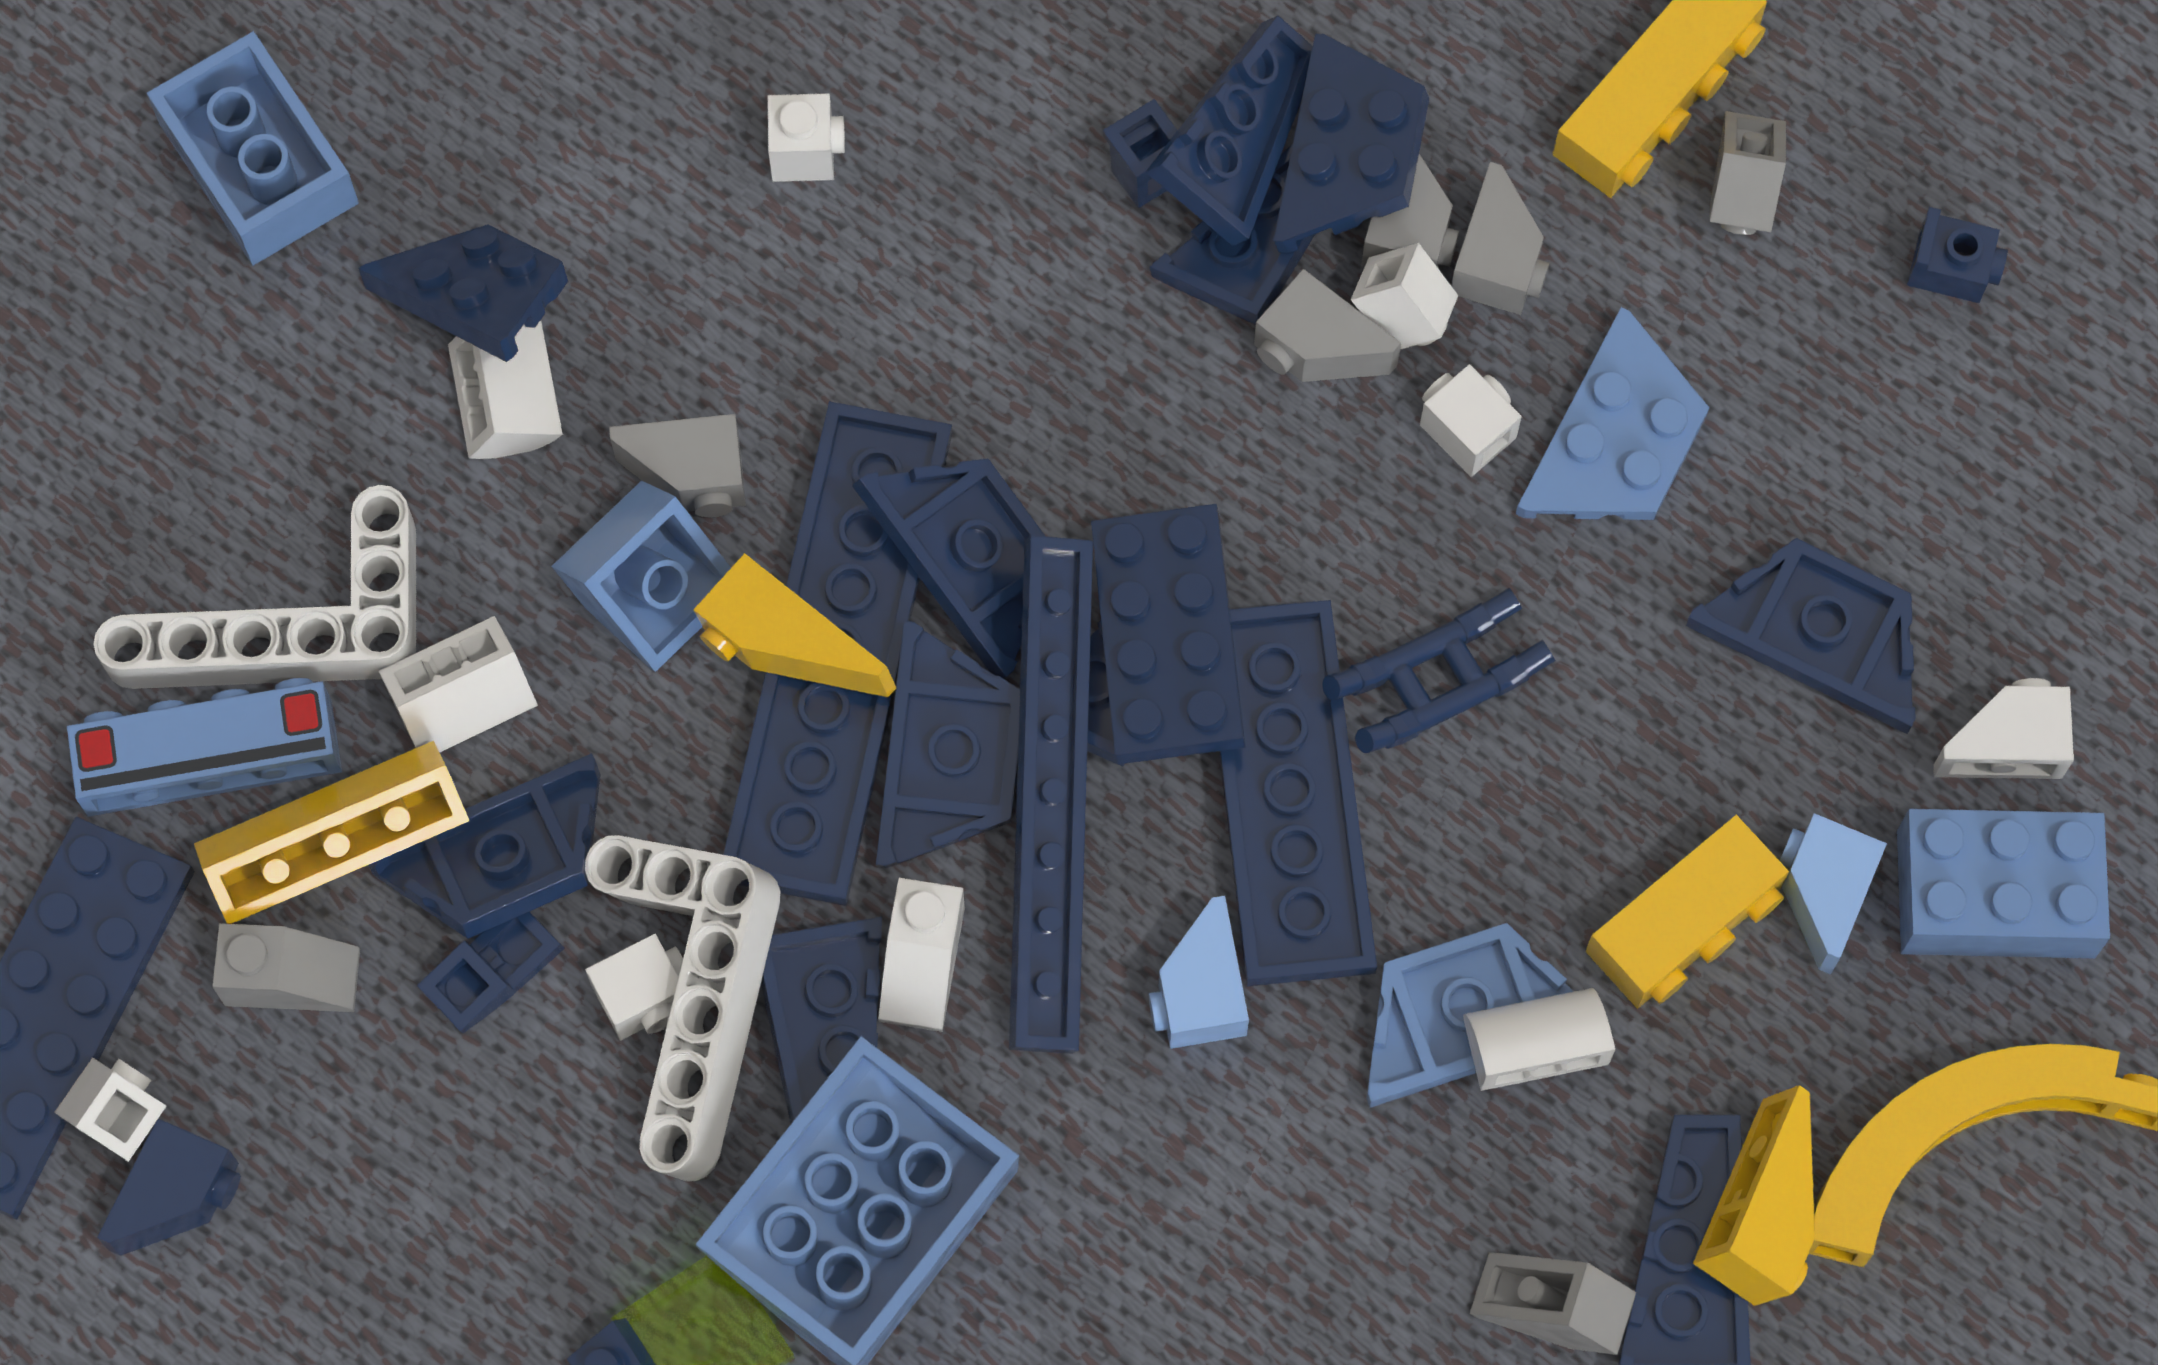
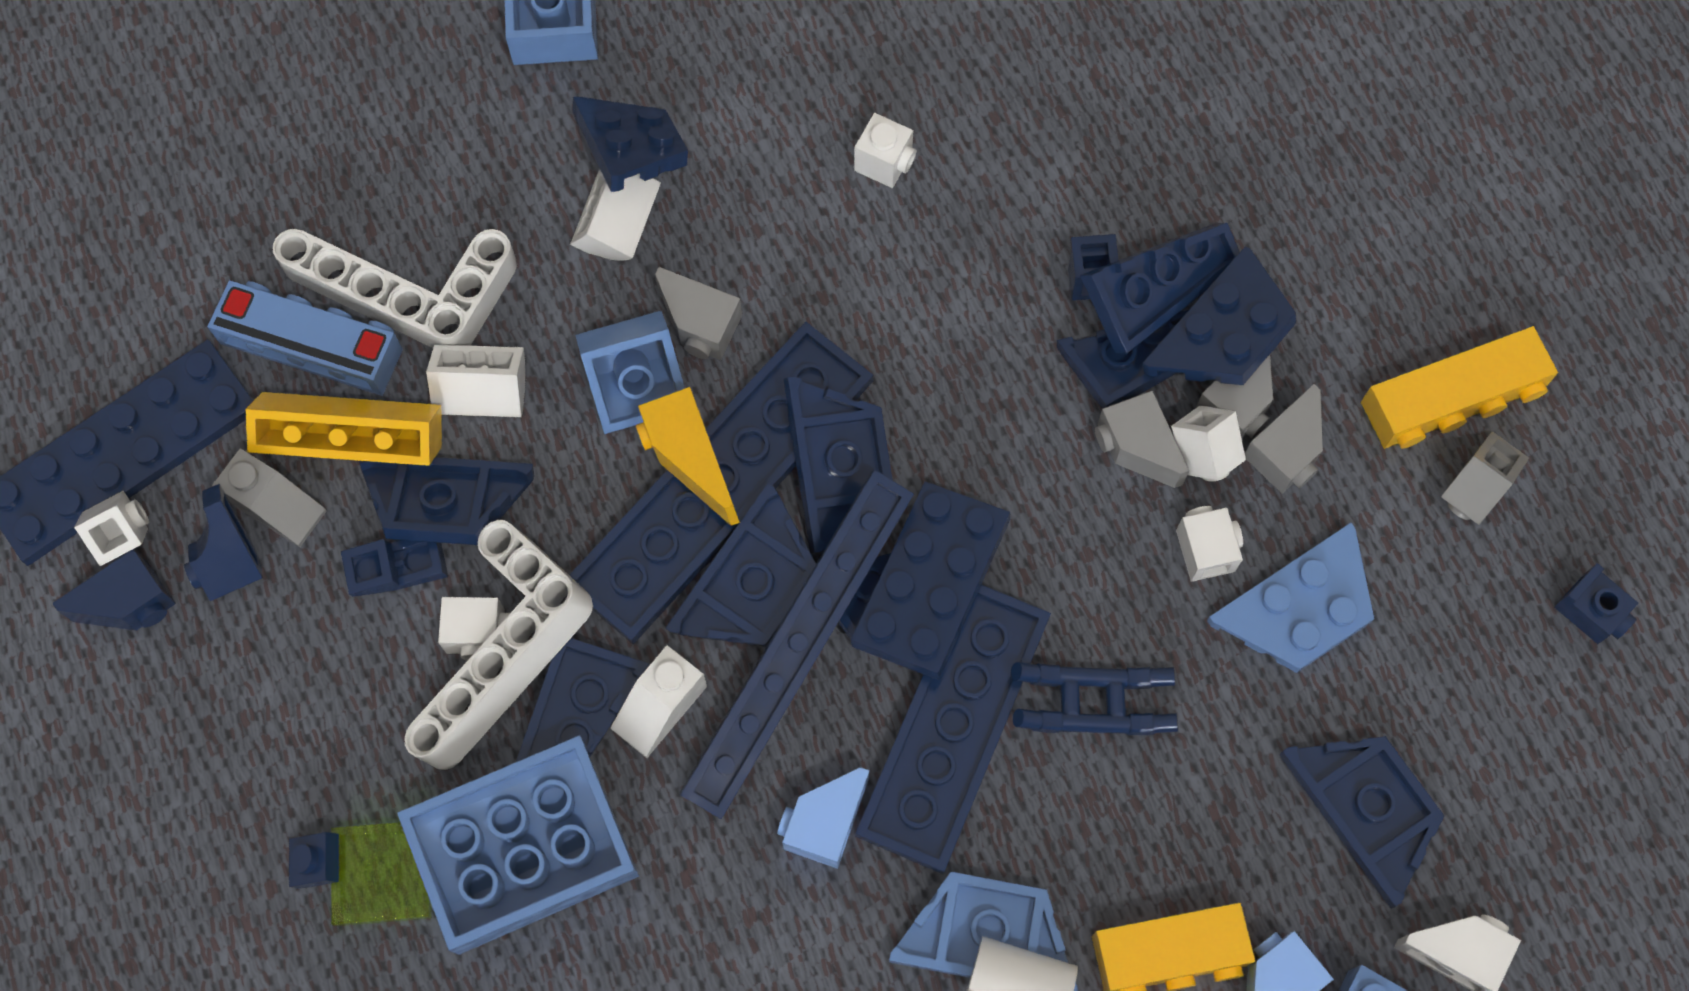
camera: 30 degrees right, 0 degrees up
(270, 1061) = (223, 554): none -> dark blue arch

